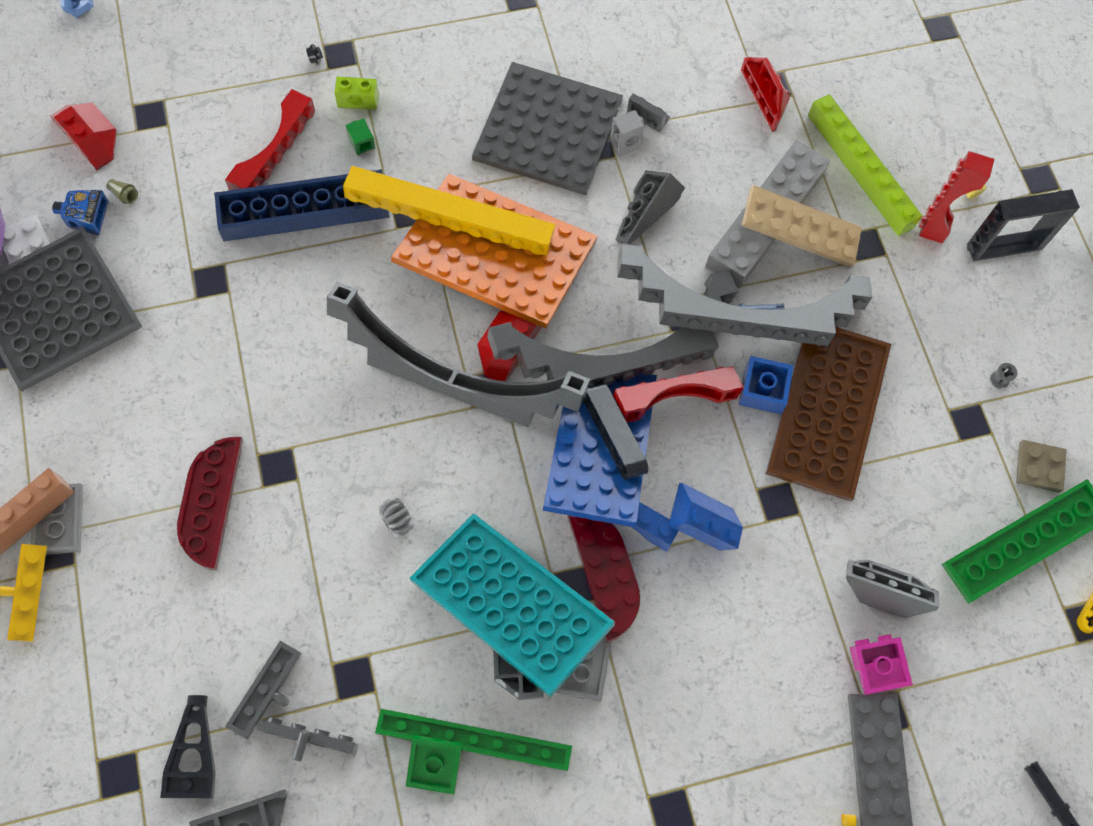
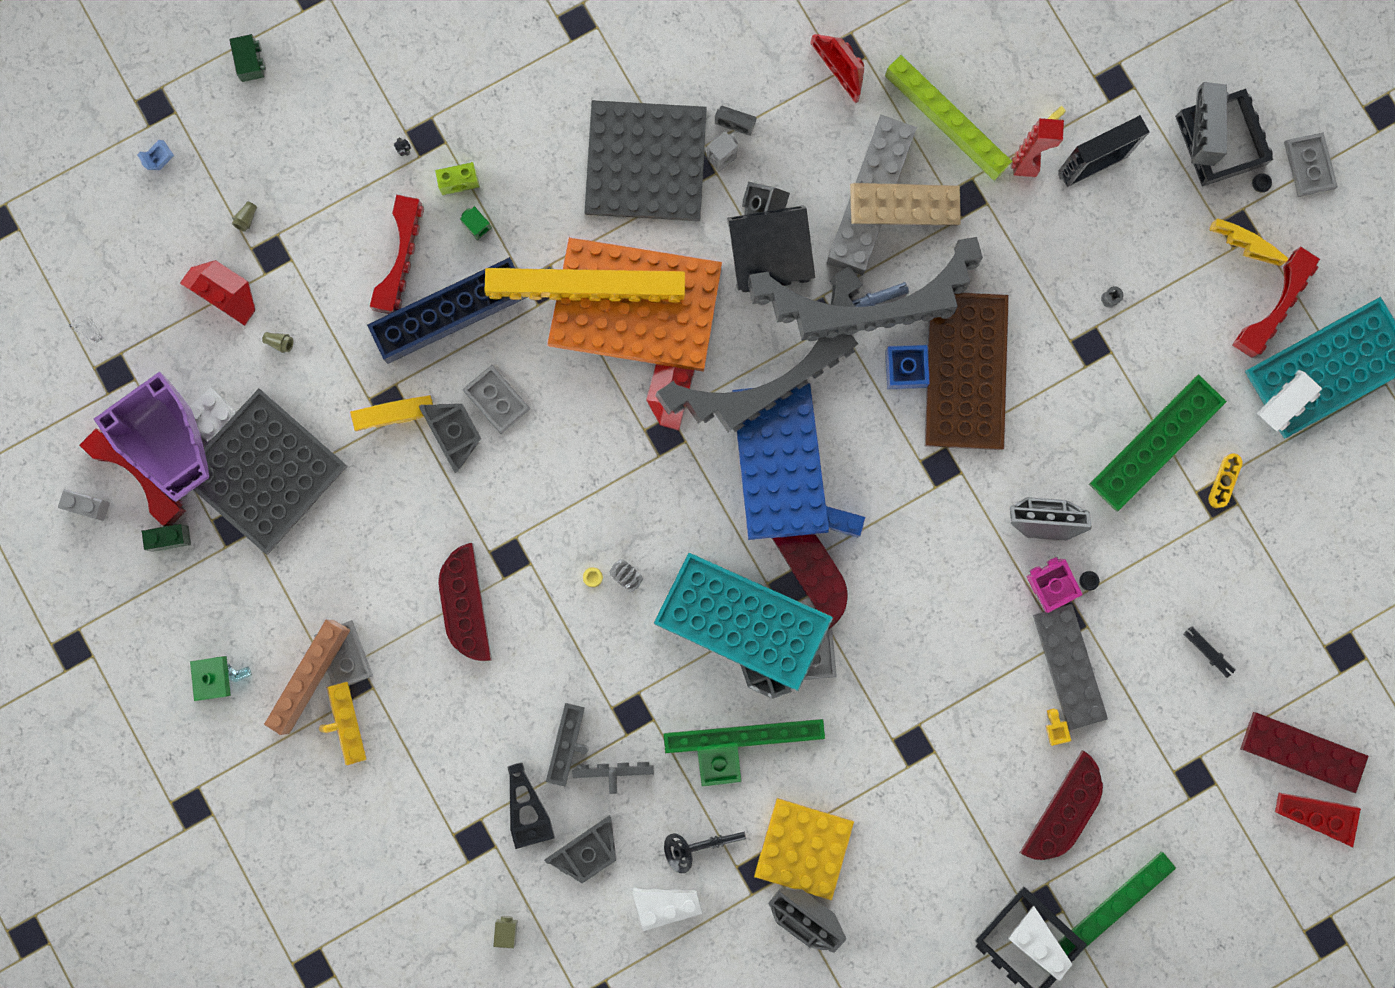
camera: 15 degrees left, 15 degrees up
(83, 209) = (251, 371): blue torso -> none
(136, 75) = (244, 217): none -> olive cone
(208, 285) = (389, 413): none -> yellow slope
(264, 321) = (453, 431): none -> dark grey wing
(312, 300) = (496, 399): none -> light grey tile
(359, 511) = (592, 577): none -> light yellow tile
(394, 355) = (586, 434): dark grey arch -> none
(615, 432) = (789, 453): beam -> none
(658, 223) = (774, 244): none -> black panel
(705, 519) = (884, 503): blue slope -> none
(715, 385) = (863, 380): arch -> none
(922, 673) = (1089, 580): none -> black plate
(1041, 466) = (1158, 371): dark tan plate -> none

